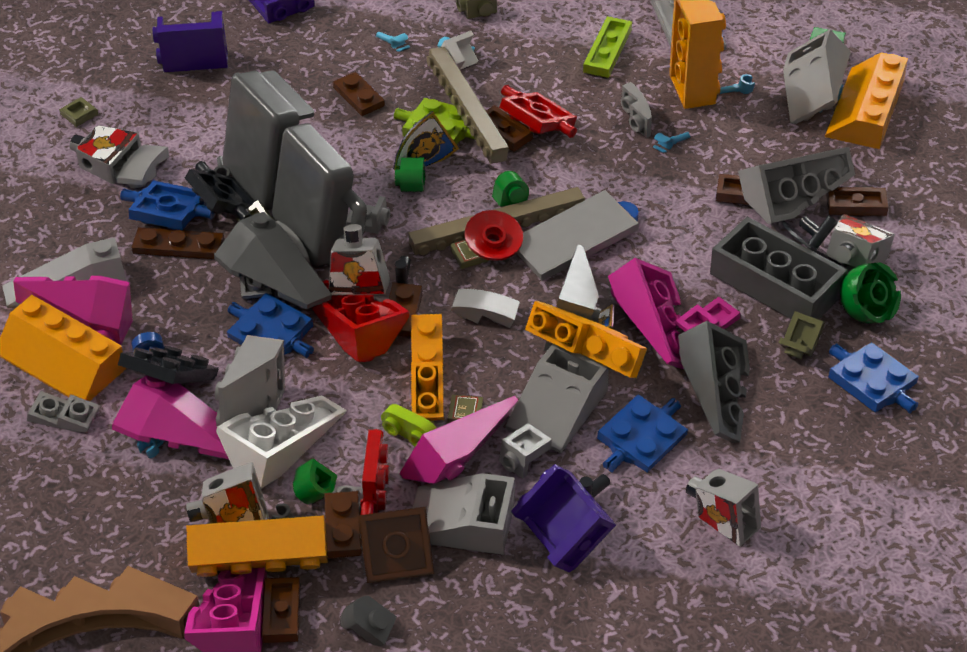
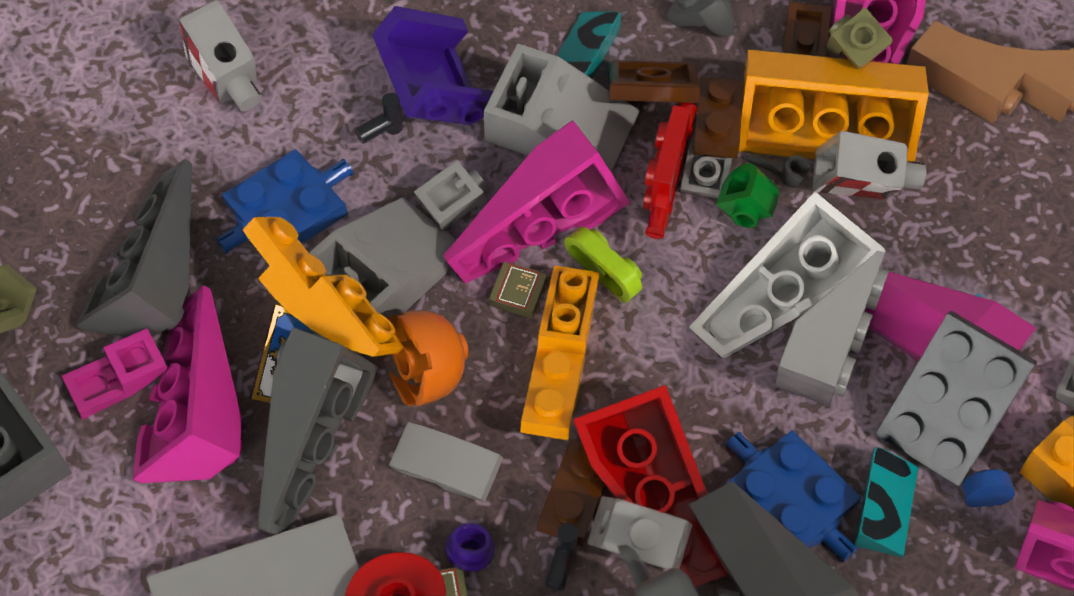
camera: 170 degrees left, 15 degrees up
(212, 333) = (886, 503): none -> teal slope
(244, 570) = (857, 38): none -> olive bracket
(455, 265) = (474, 537): none -> dark purple plate
(455, 579) = (590, 40): none -> teal slope
(511, 347) = (430, 355): none -> orange cylinder

